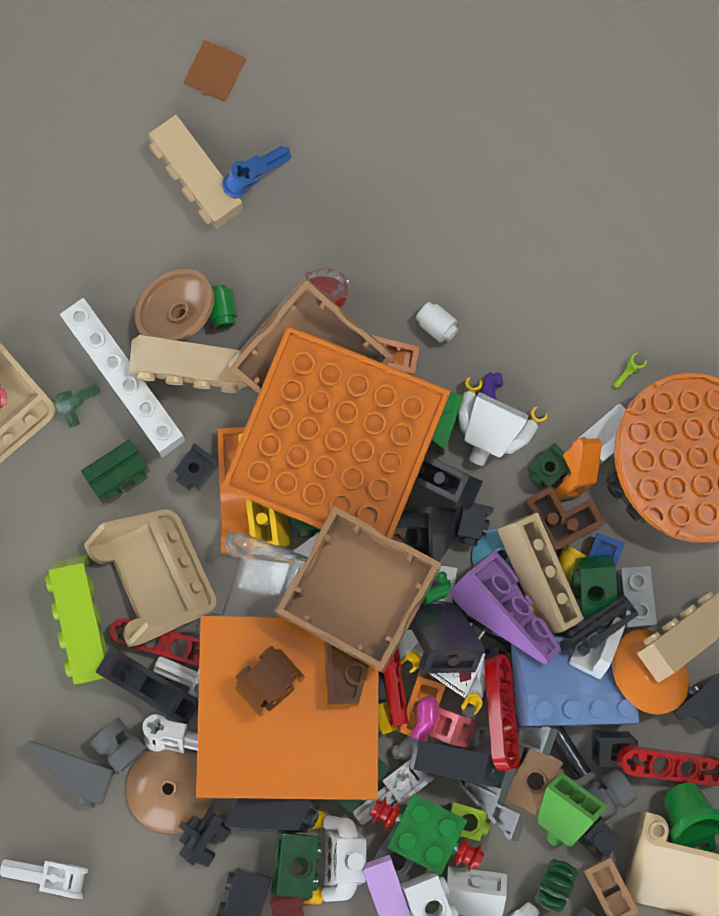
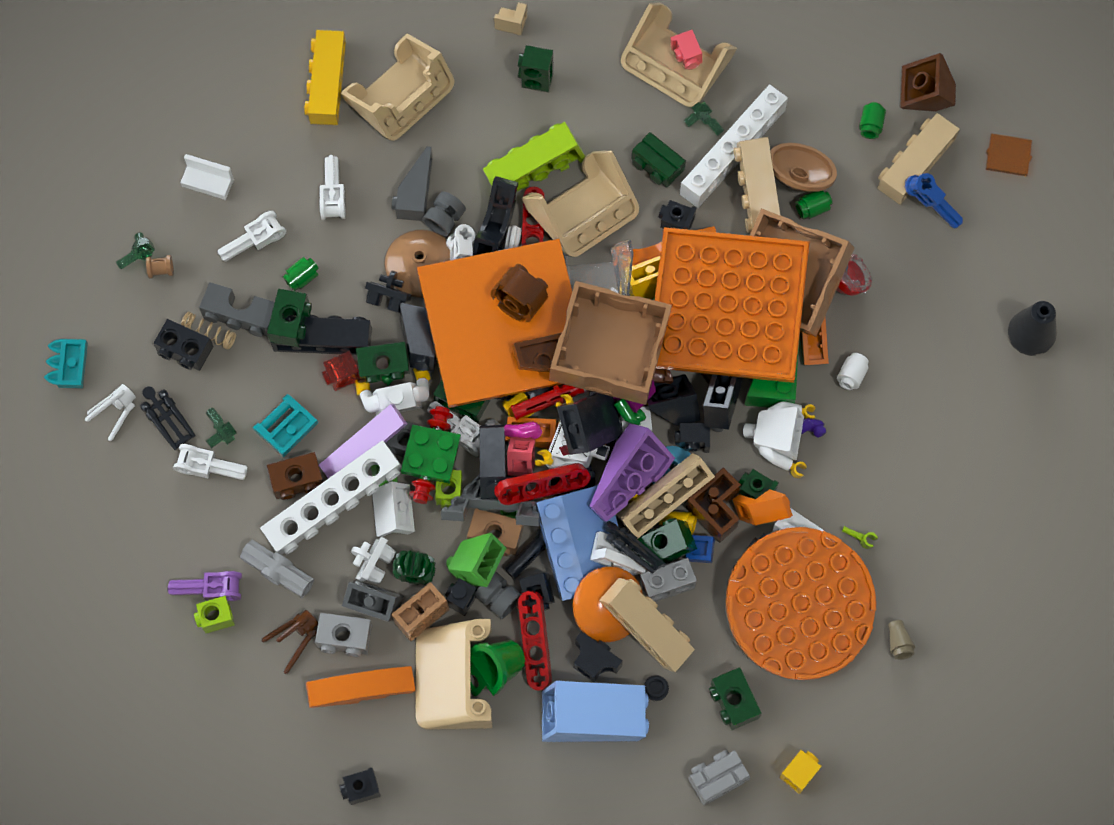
camera: 80 degrees right, 10 degrees down
(105, 134) = (927, 85): none -> reddish brown slope
(133, 209) = (872, 120): none -> green brick
(437, 110) = (1034, 329): none -> black cone

